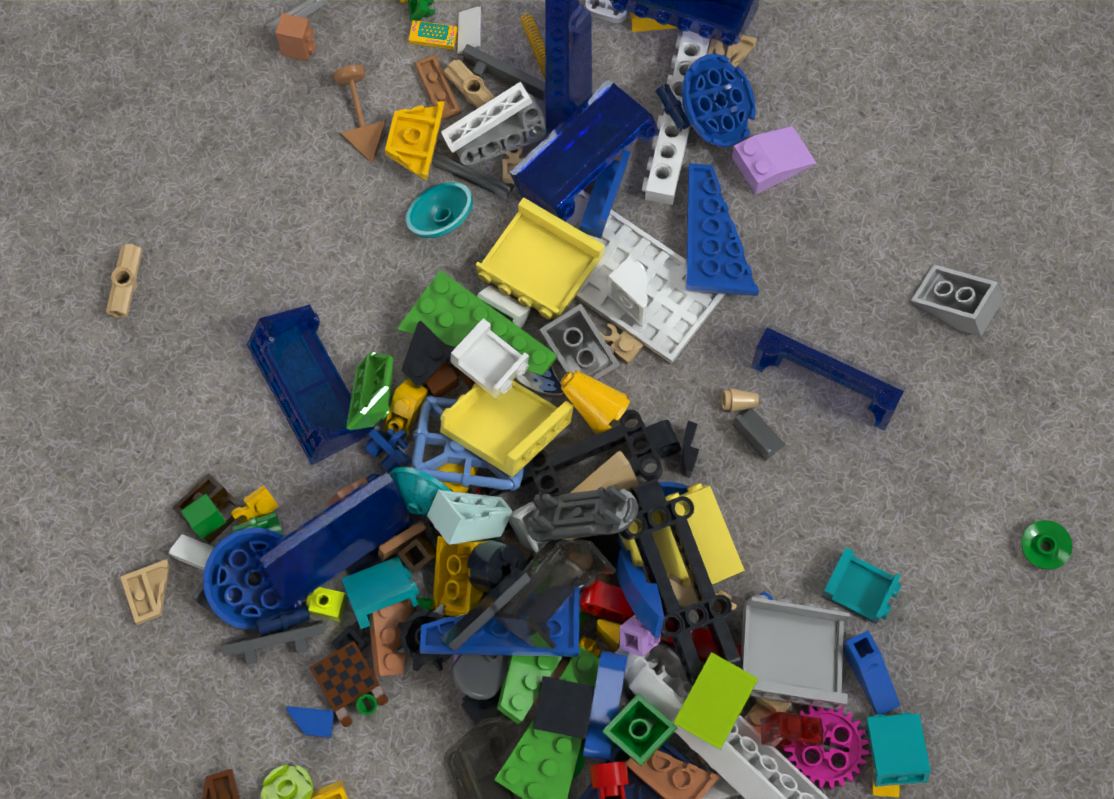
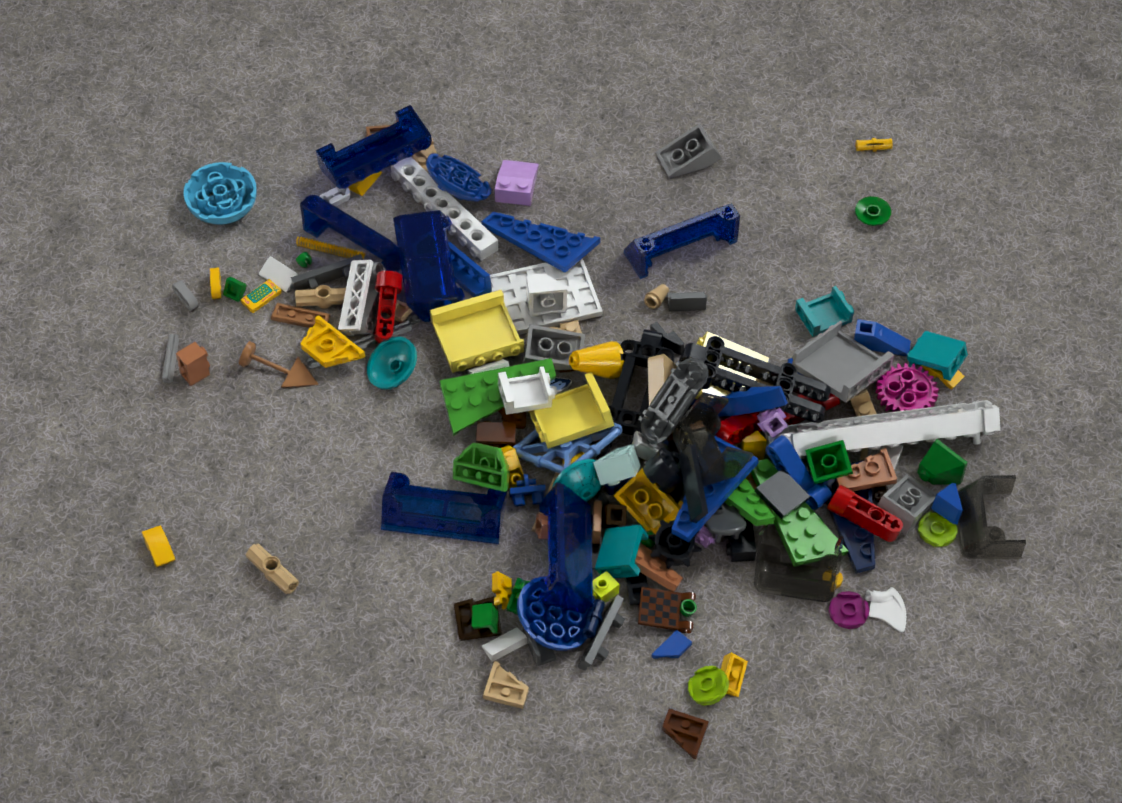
camera: 55 degrees left, 15 degrees down
(77, 163) = (158, 546): none -> yellow slope
(424, 355) = (487, 427): black wing -> none
(507, 36) = (301, 259): none -> green hinge
(518, 138) = (388, 285): none -> red beam
(673, 107) = (441, 200): dark blue pin -> none
(716, 701) = (844, 408): lime tile -> none
(791, 730) = (886, 394): clear red slope -> none

